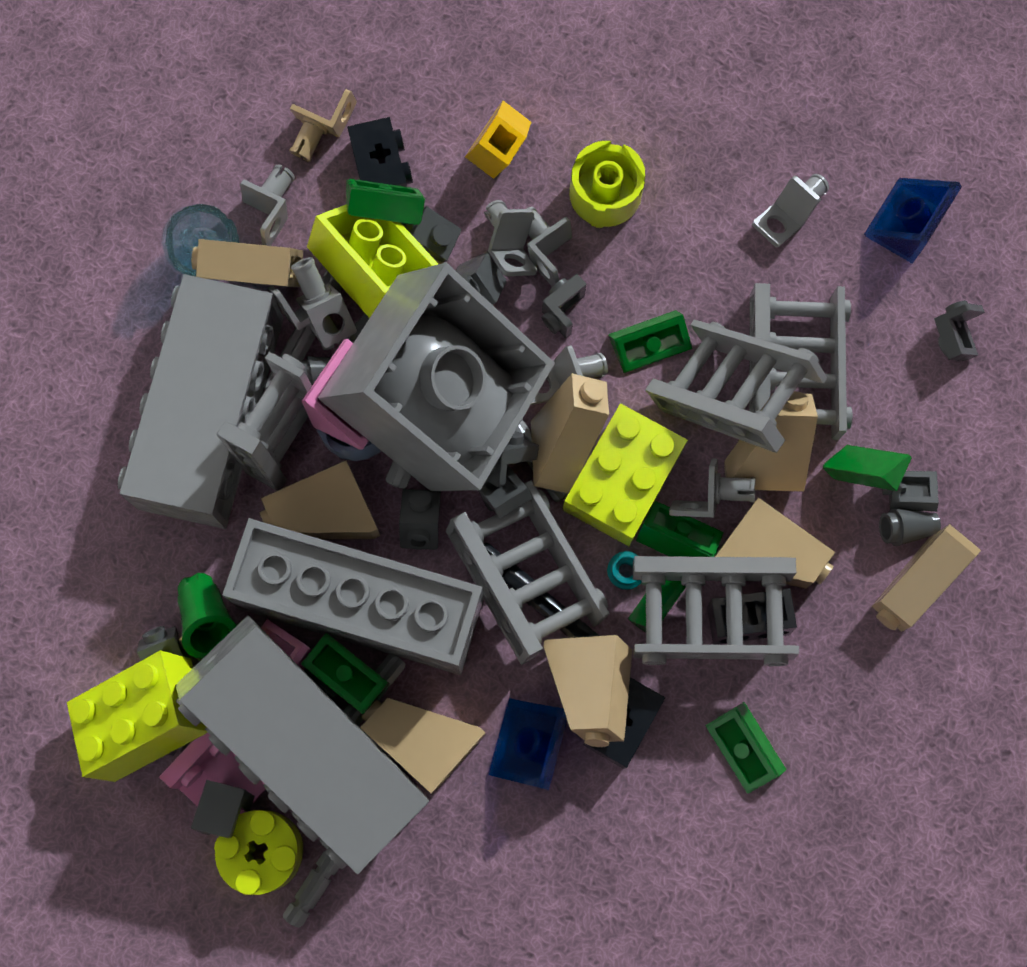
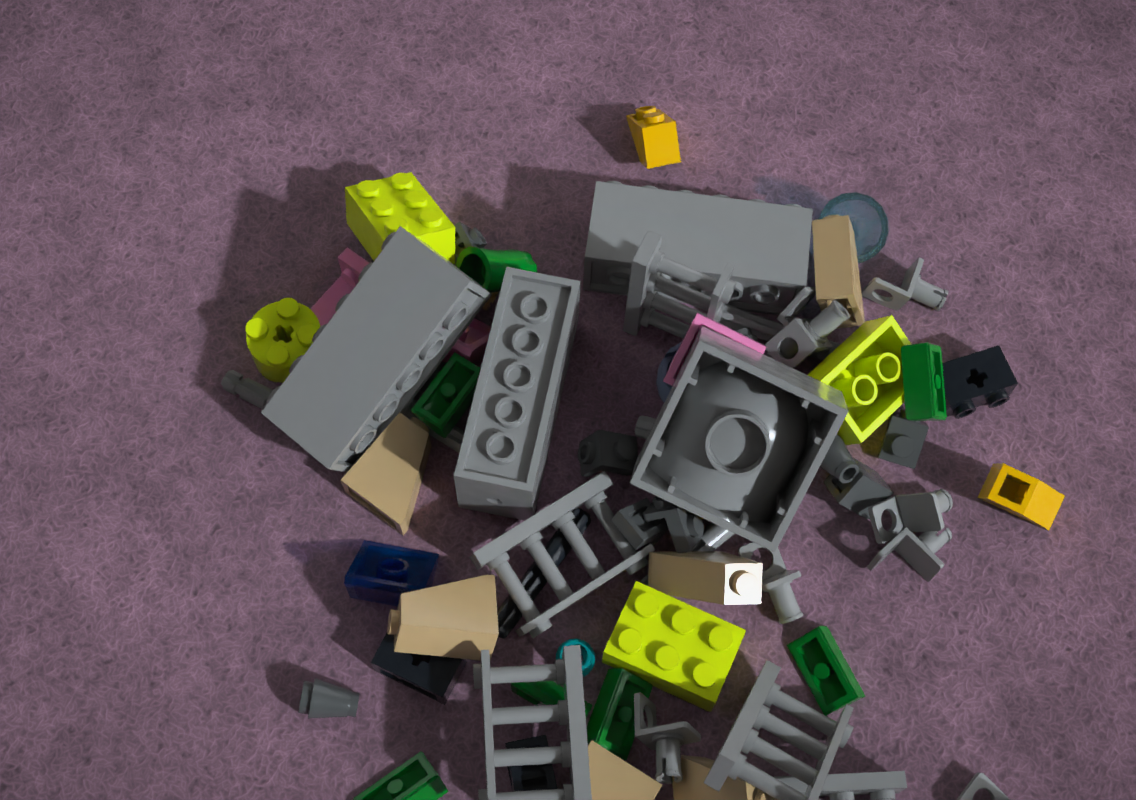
camera: 85 degrees right, 10 degrees down
(52, 433) = (654, 137): none -> yellow slope
(220, 809) = (318, 297): dark grey panel -> none
(315, 125) = (994, 320): tan bracket -> none
(322, 506) = (610, 365): tan slope -> none
(561, 298) = (854, 570): dark grey bracket -> none
(606, 184) = (979, 624): neon yellow brick -> none
(654, 817) = (327, 700): none -> dark grey cone

